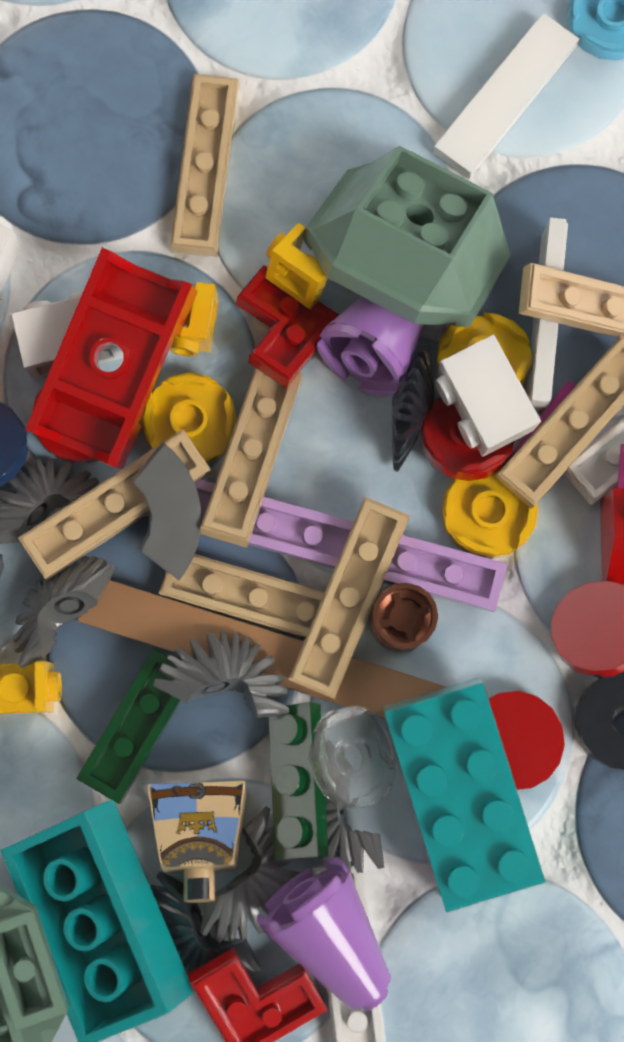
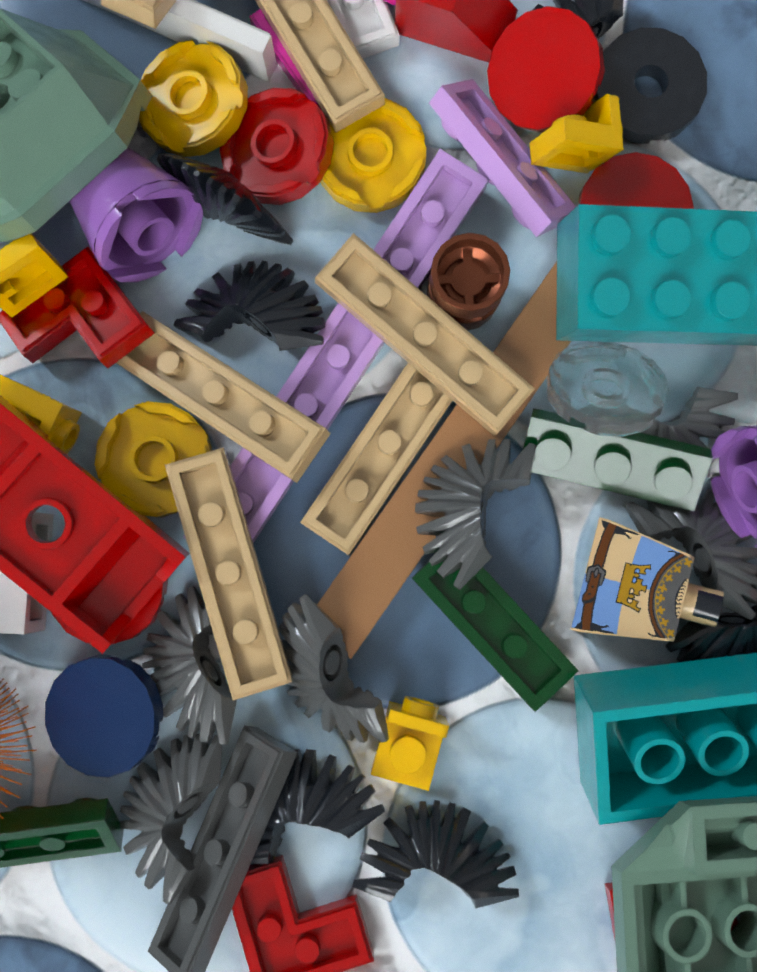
camera: 70 degrees left, 5 degrees up
(173, 511) = (257, 505): dark grey tile -> none
(340, 464) = (259, 300): none -> black hair
(486, 396) = (242, 95): white brick -> none
(519, 617) = (501, 156): none -> lavender plate
(552, 678) = (581, 141): none -> yellow bracket

